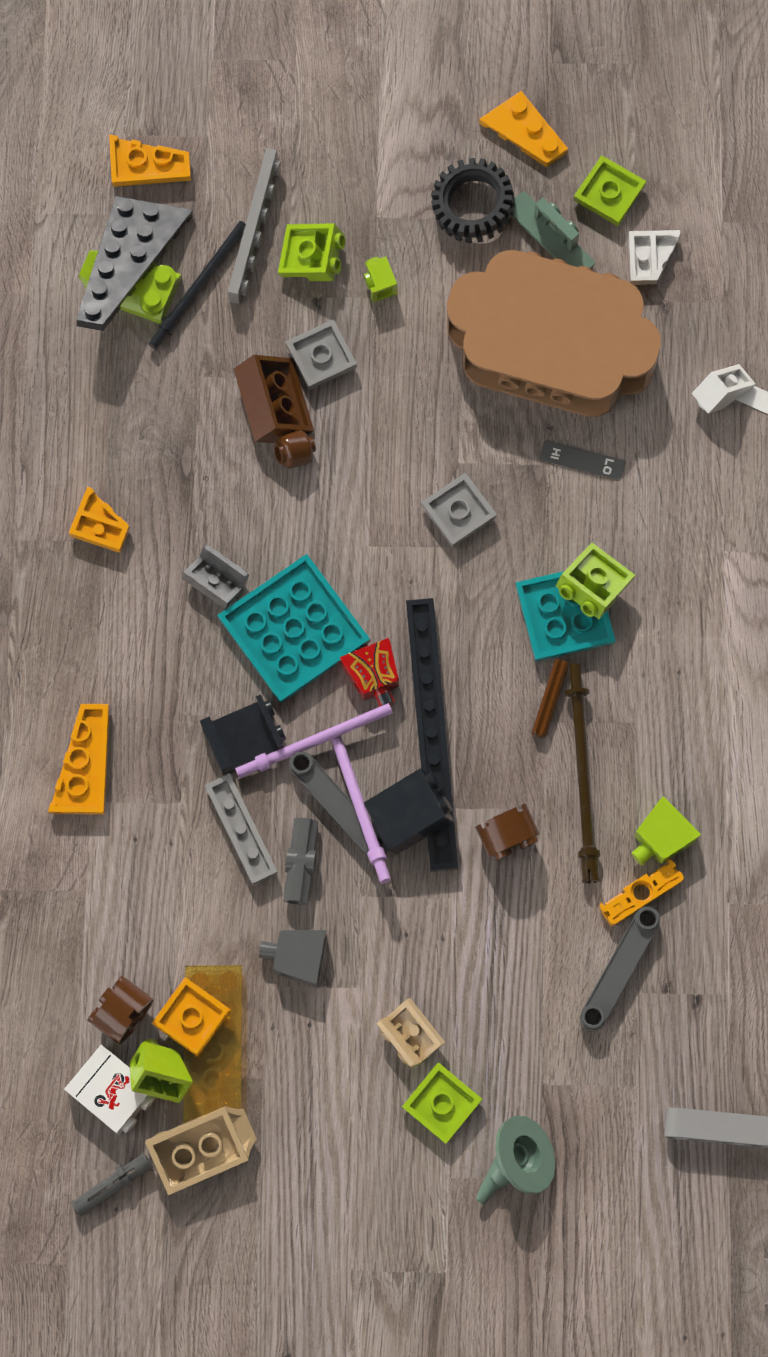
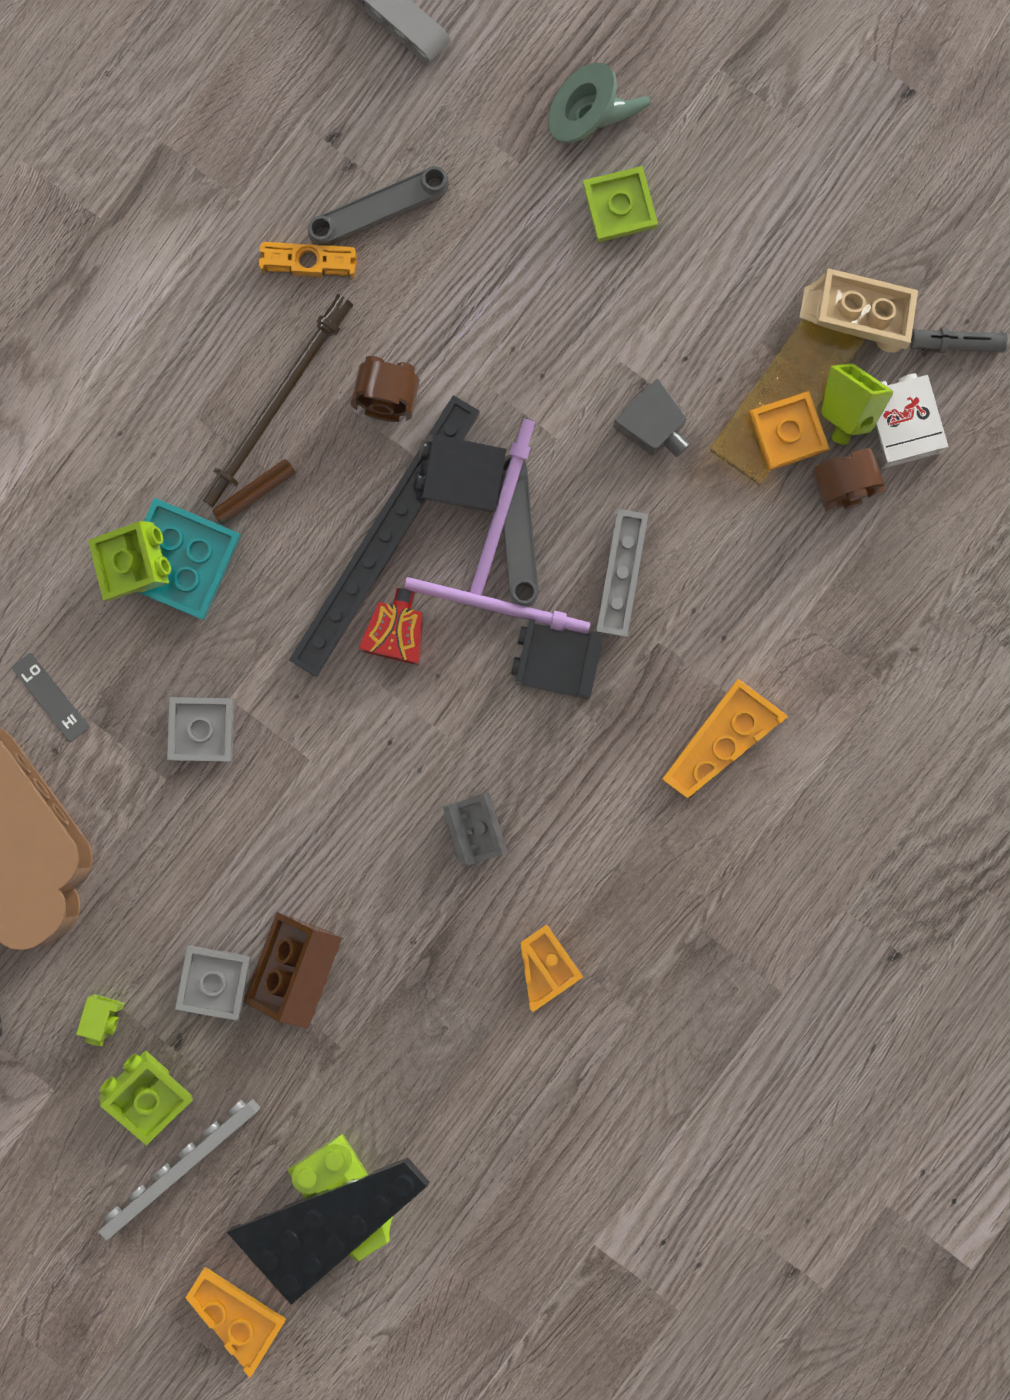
camera: 145 degrees left, 10 degrees up
(168, 323) = (337, 1125): black bar -> none
(293, 628) = (437, 727): teal plate -> none
(294, 449) = (309, 903): reddish brown head -> none
(300, 861) = (589, 504): dark grey piece -> none
(410, 1033) = (604, 281): tan bracket -> none
(663, 834) = (248, 293): lime torso -> none

